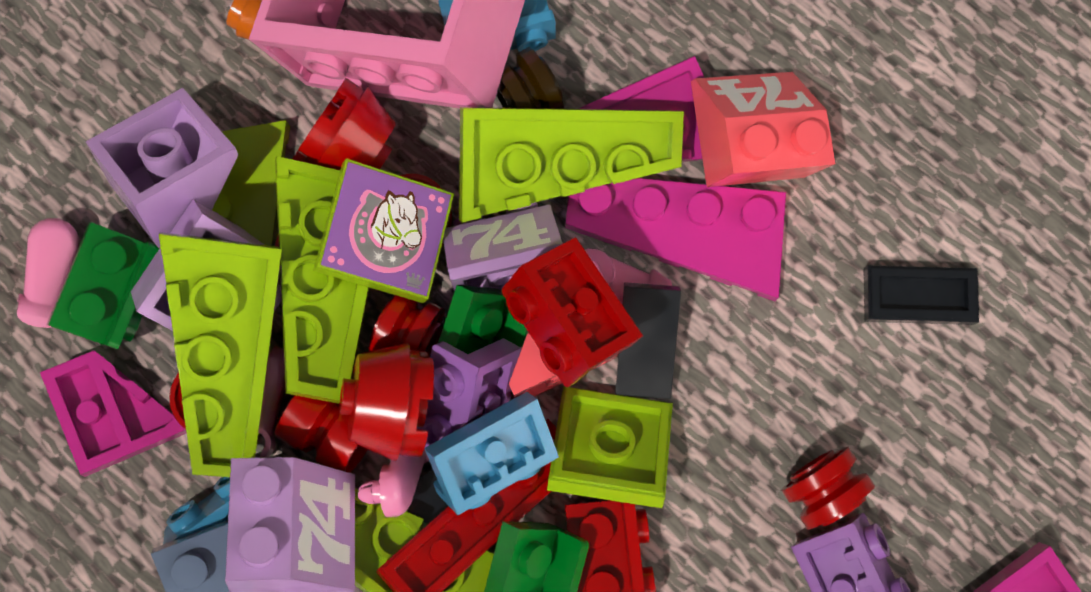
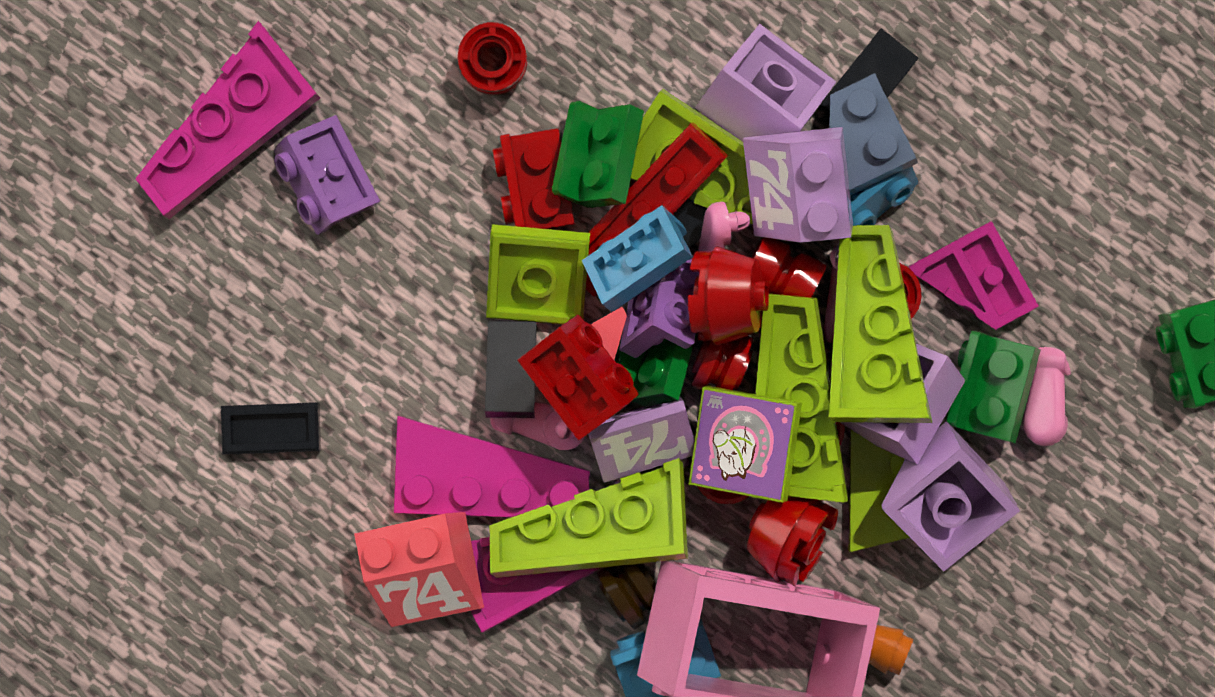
camera: 175 degrees right, 10 degrees up
(828, 488) = (351, 251): red wheel -> none

